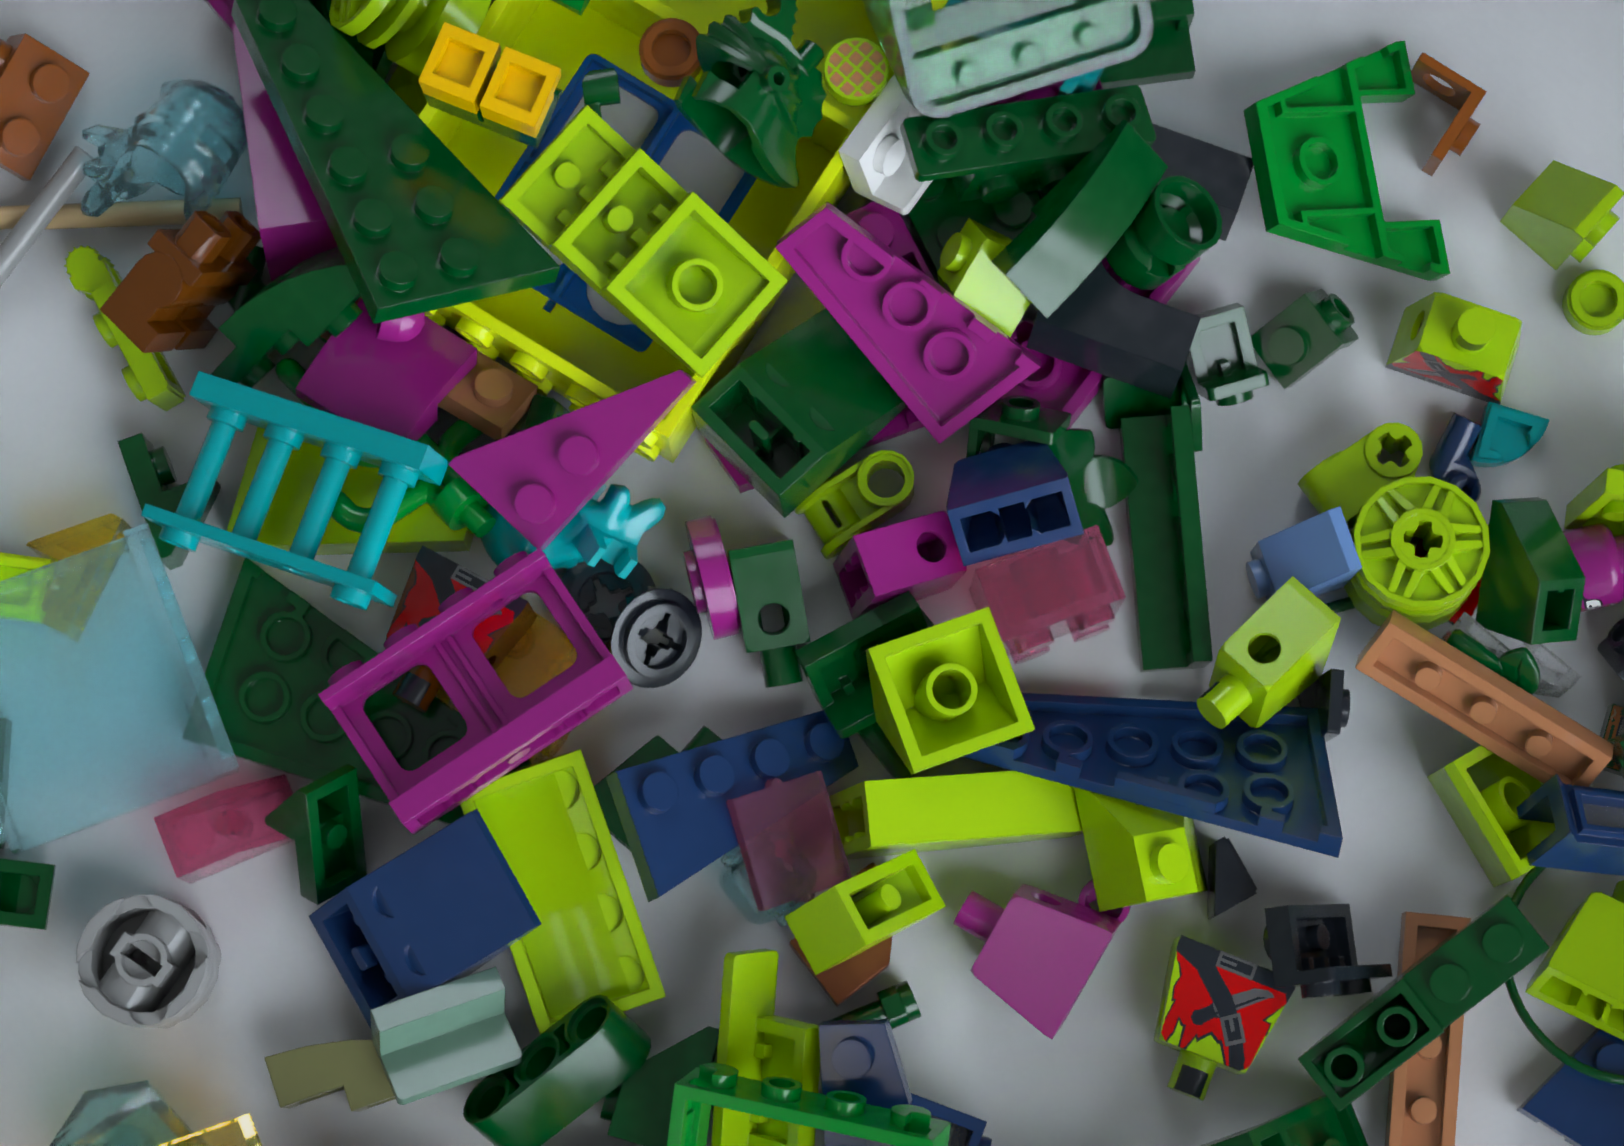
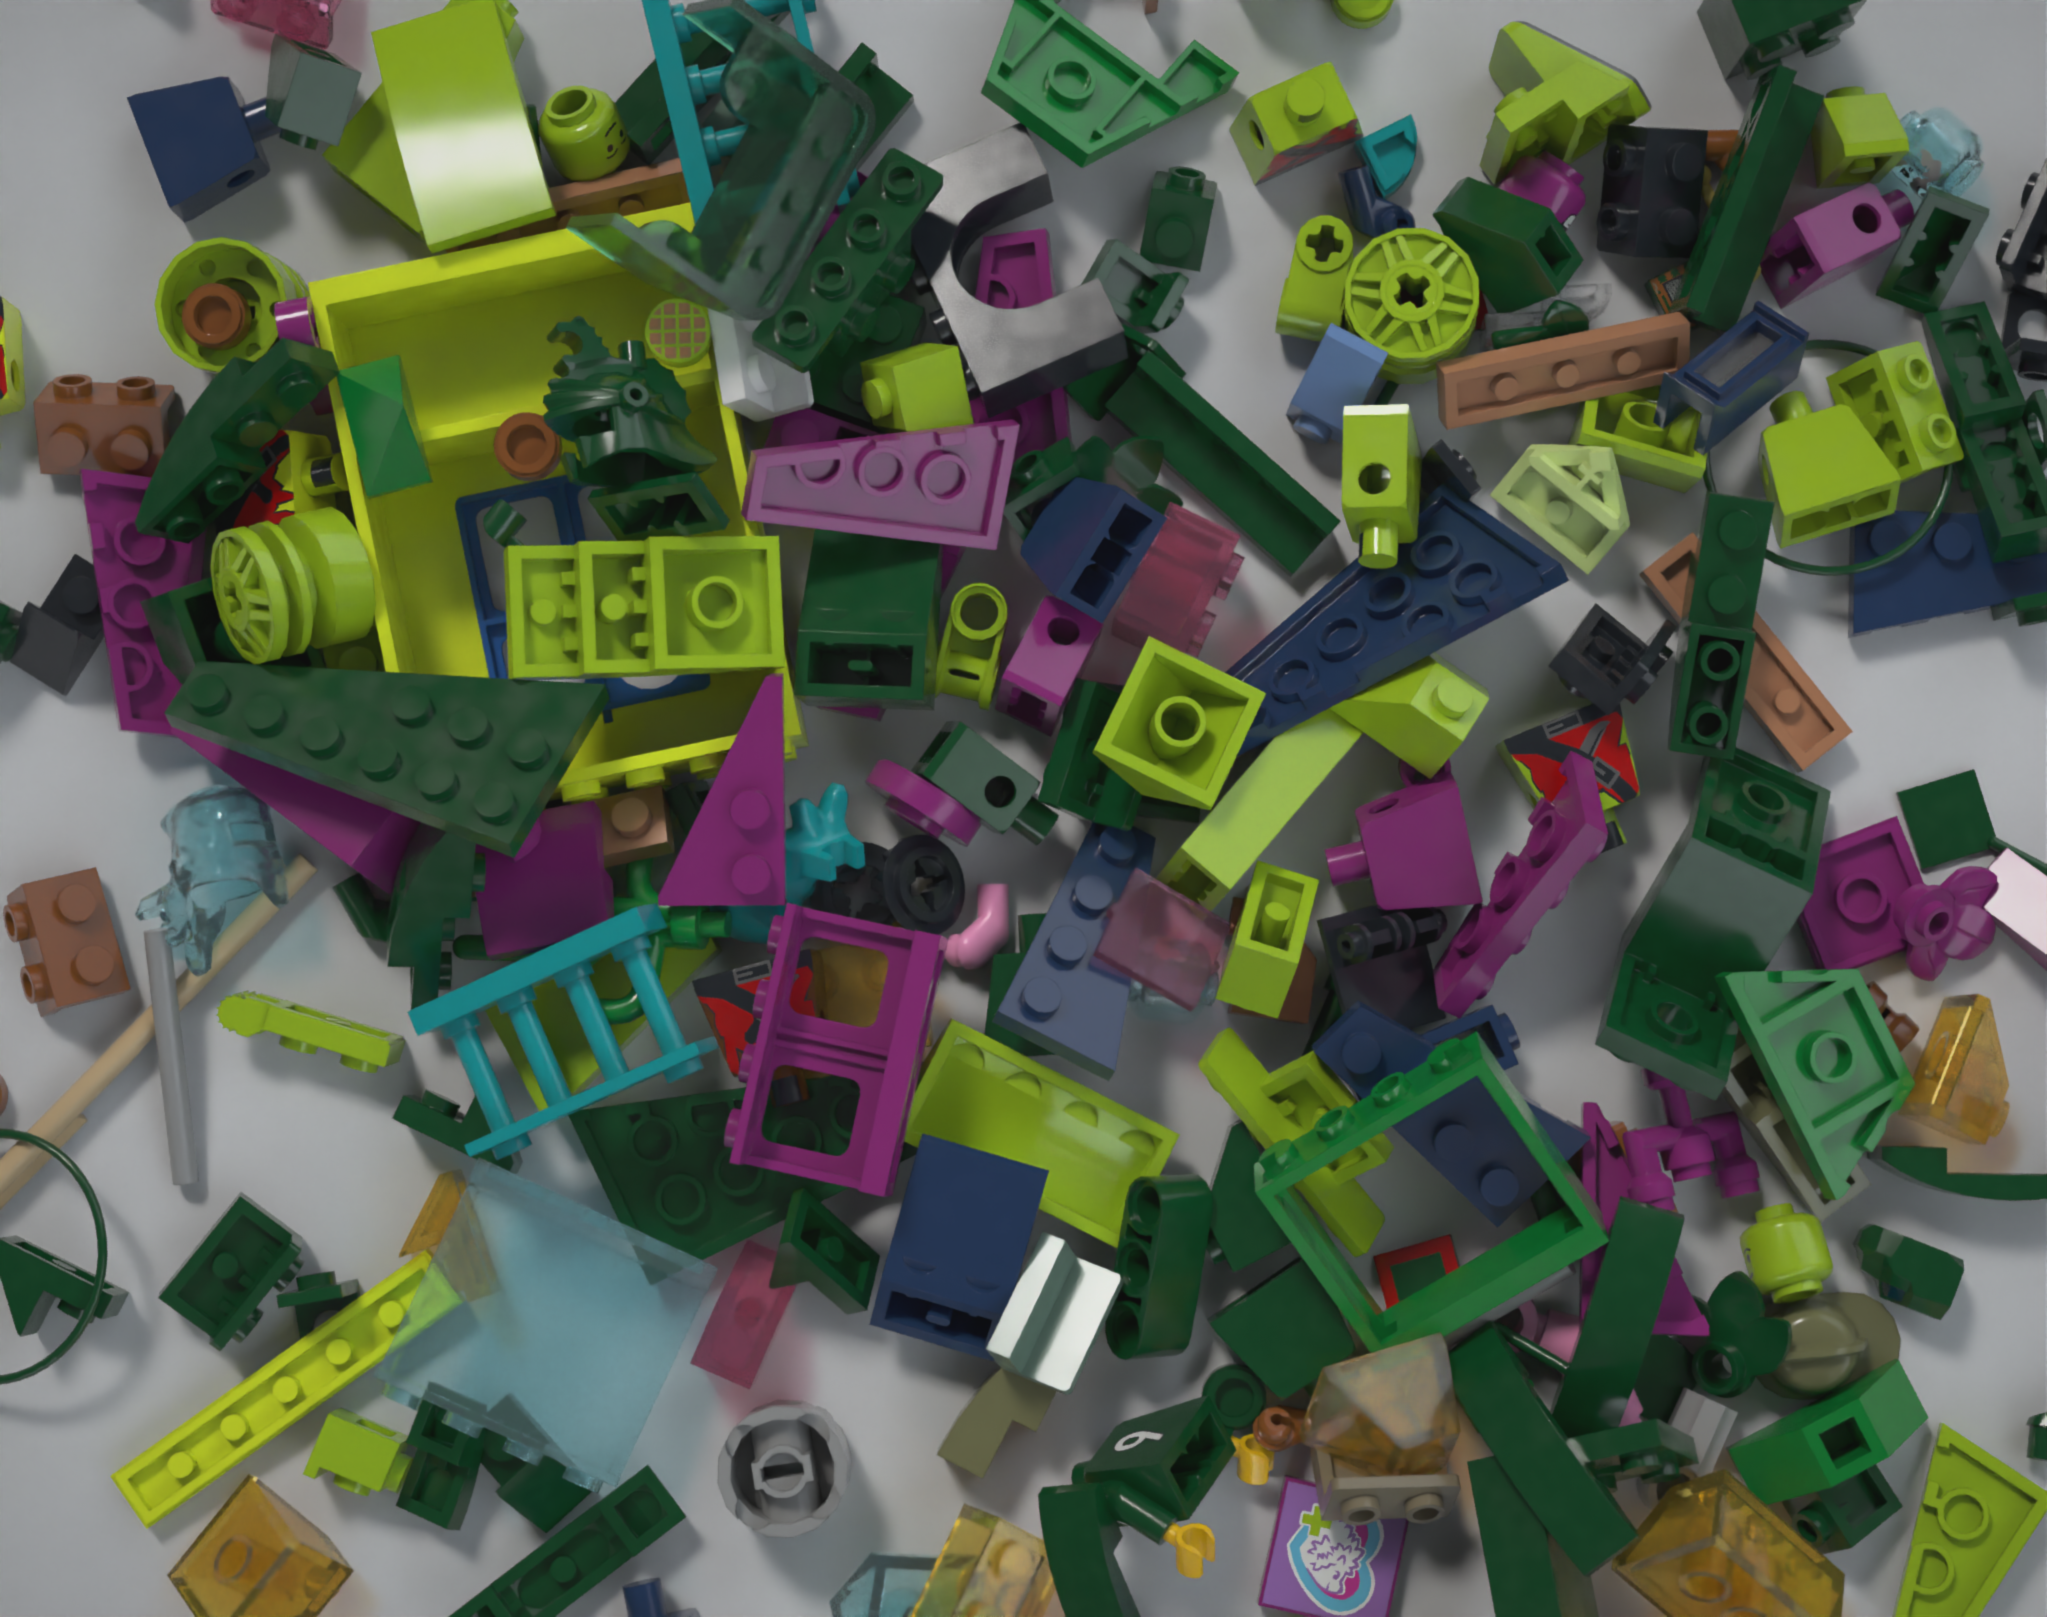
camera: 40 degrees left, 5 degrees up
(178, 286) = (325, 972): reddish brown hips -> none
(503, 97) = (412, 610): yellow hips -> none
(665, 717) = (986, 934): none -> bright pink arm
(720, 178) = (659, 508): none -> dark green slope
(939, 1016) = (1385, 961): none -> black hinge
(1081, 219) = (948, 287): dark green slope -> none
(1094, 1056) = (1524, 888): none -> magenta wing
(1167, 234) = (1010, 240): dark green wheel -> none
(1227, 878) = (1495, 668): black slope -> none
(1399, 806) = (1568, 499): none -> yellowish green slope

